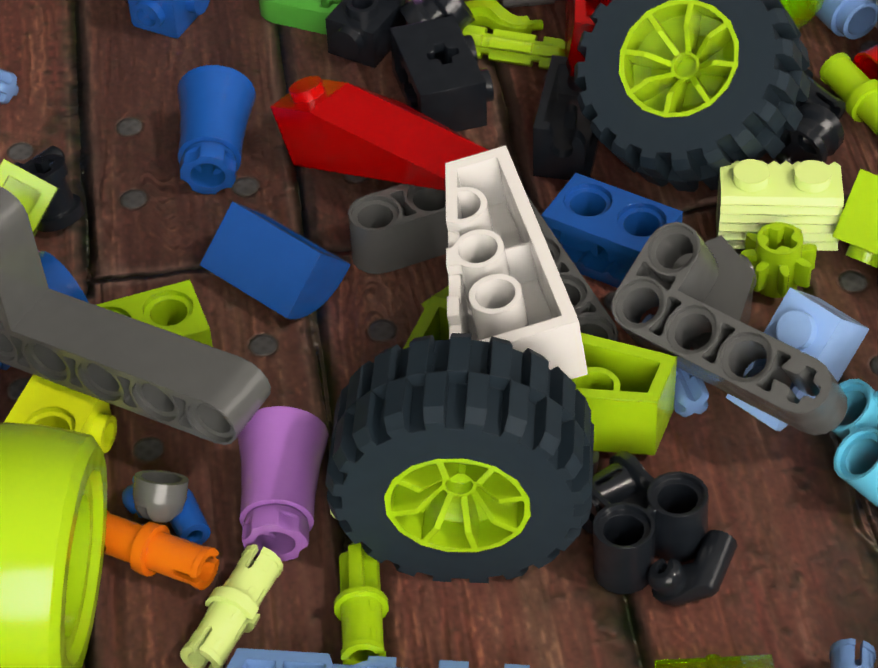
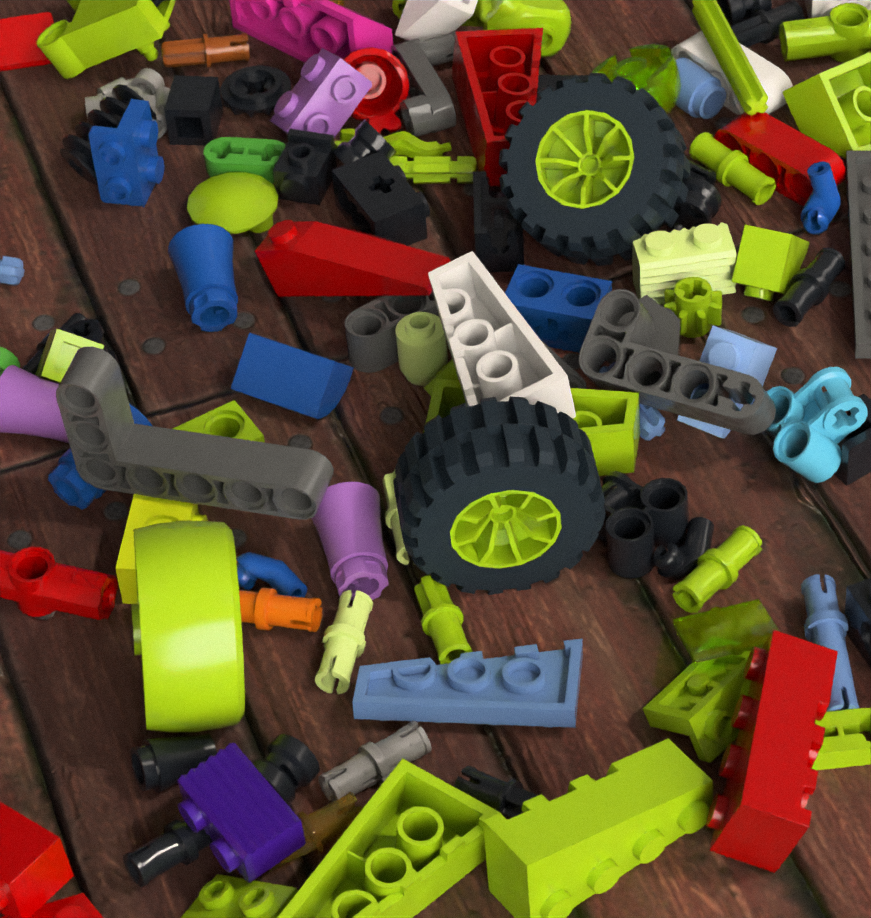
camera: 10 degrees left, 0 degrees up
(159, 494) = (265, 566): dark grey hinge -> none
(275, 49) = (234, 202): none -> lime dish
(425, 252) = (420, 346): none -> yellowish green brick
(726, 604) = (717, 569): none -> lime pin

